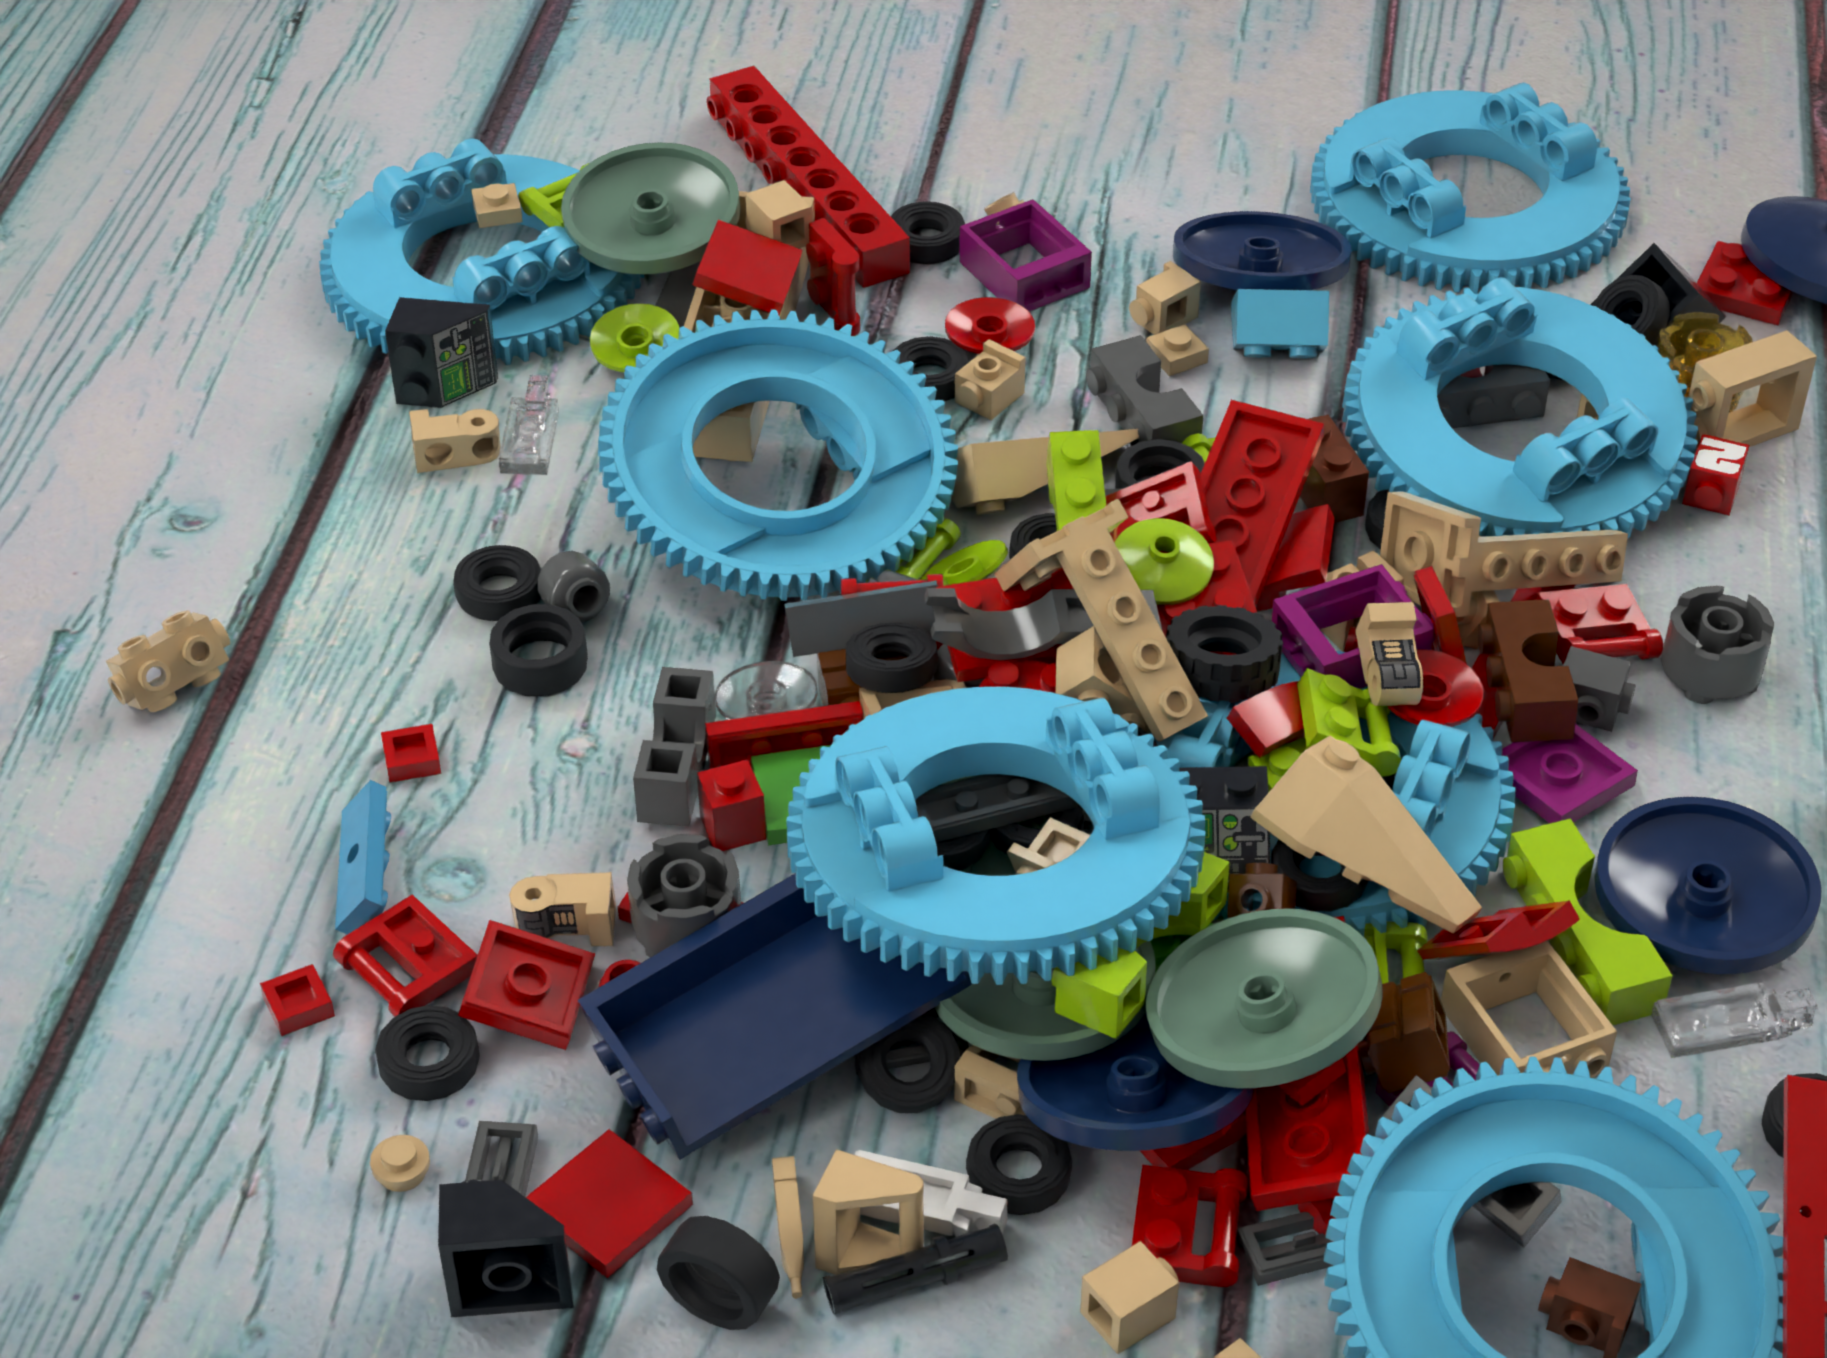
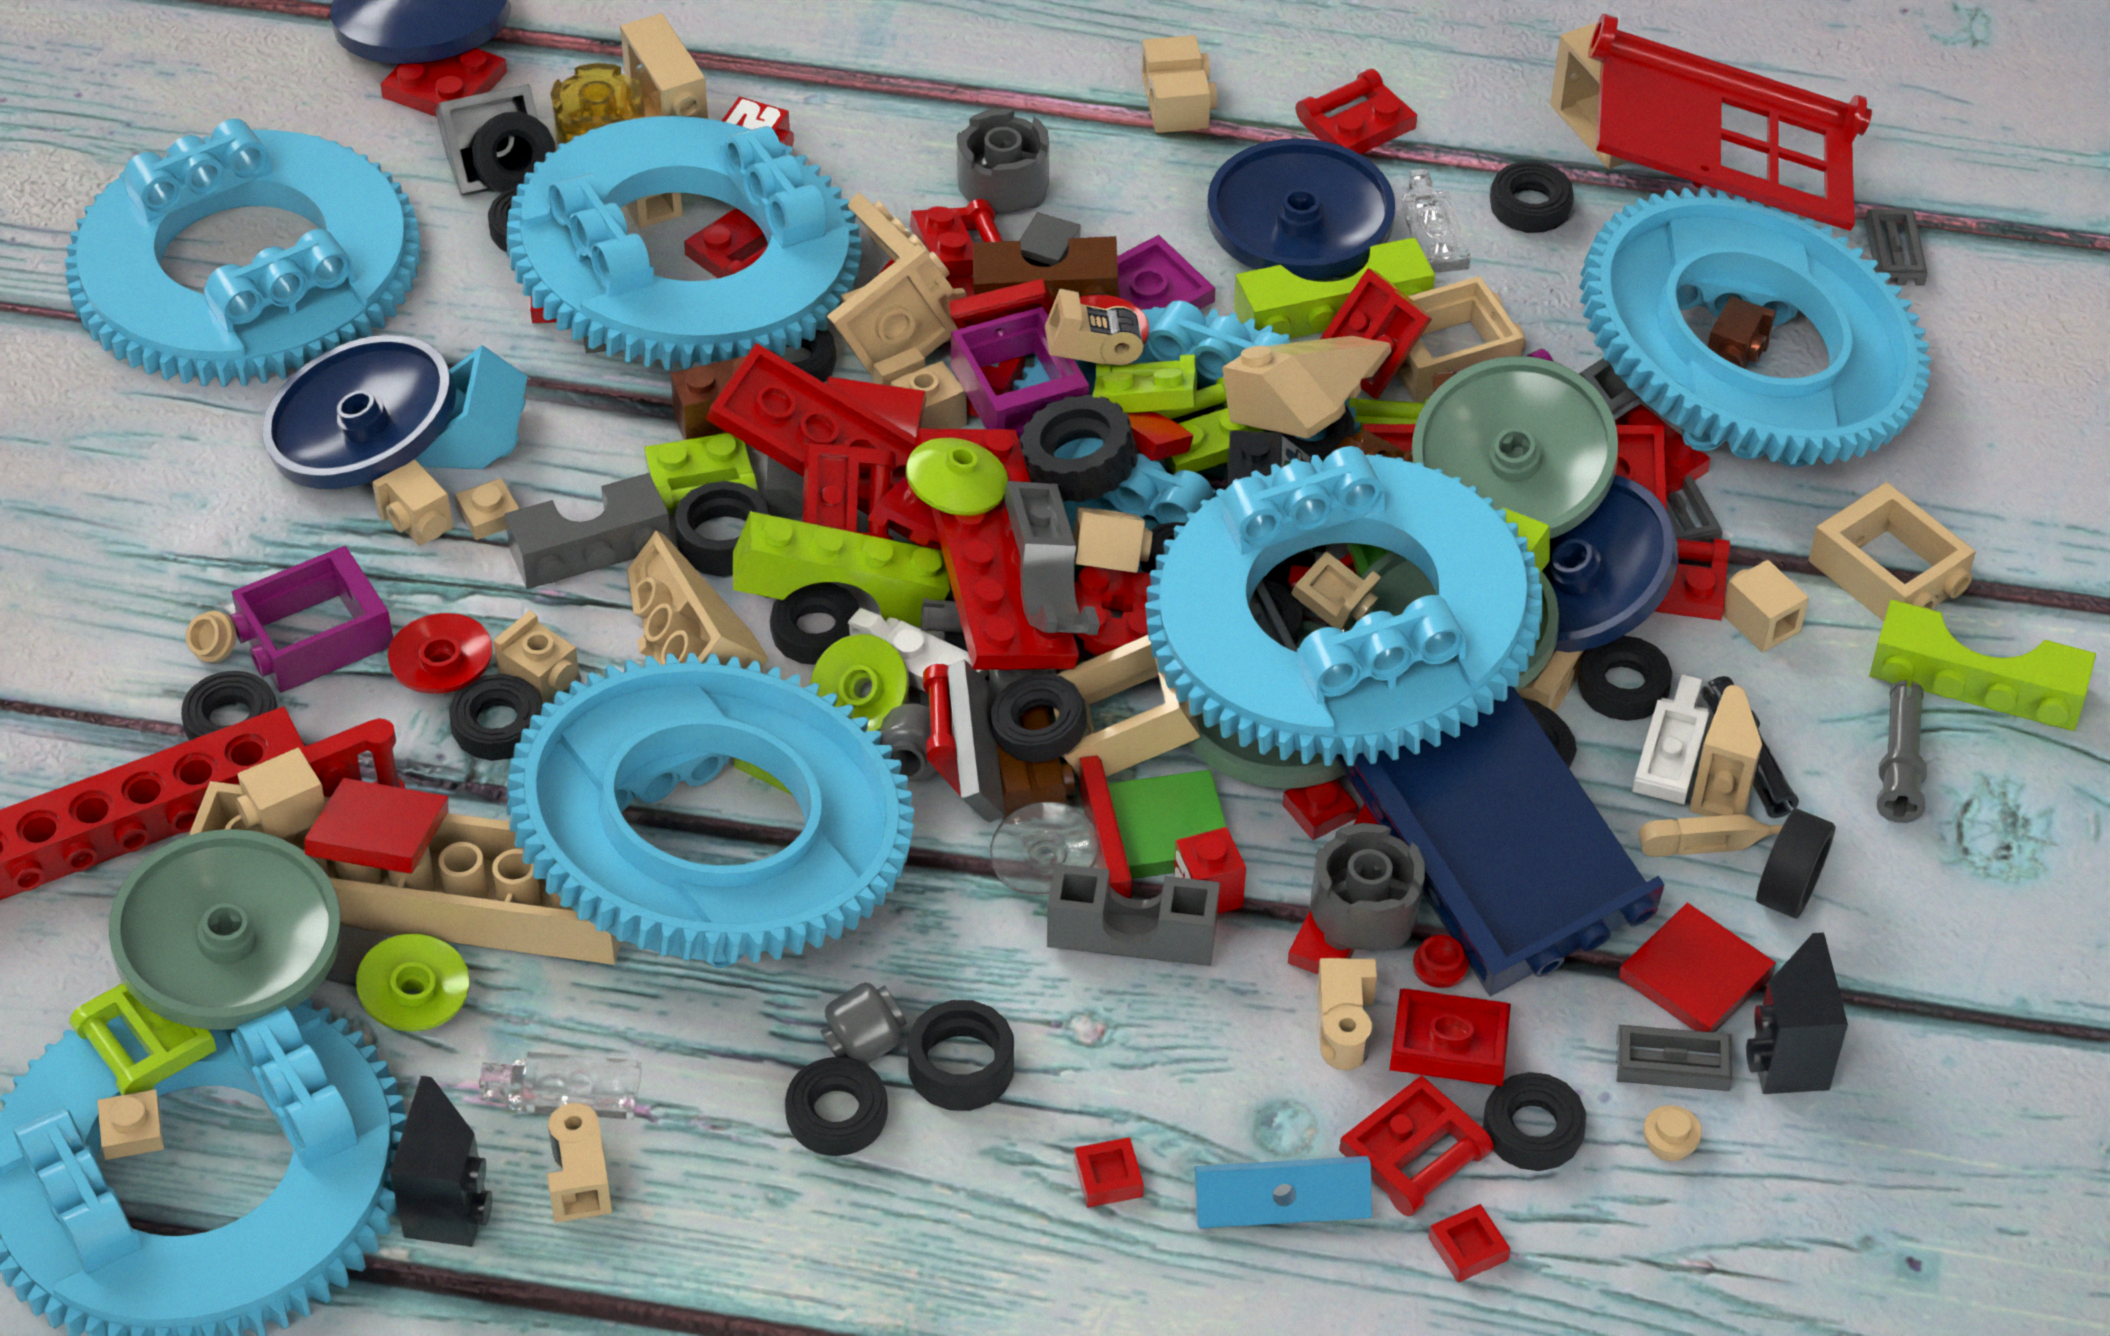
camera: 90 degrees left, 5 degrees up
(1117, 613) = (1013, 496): tan bracket -> none

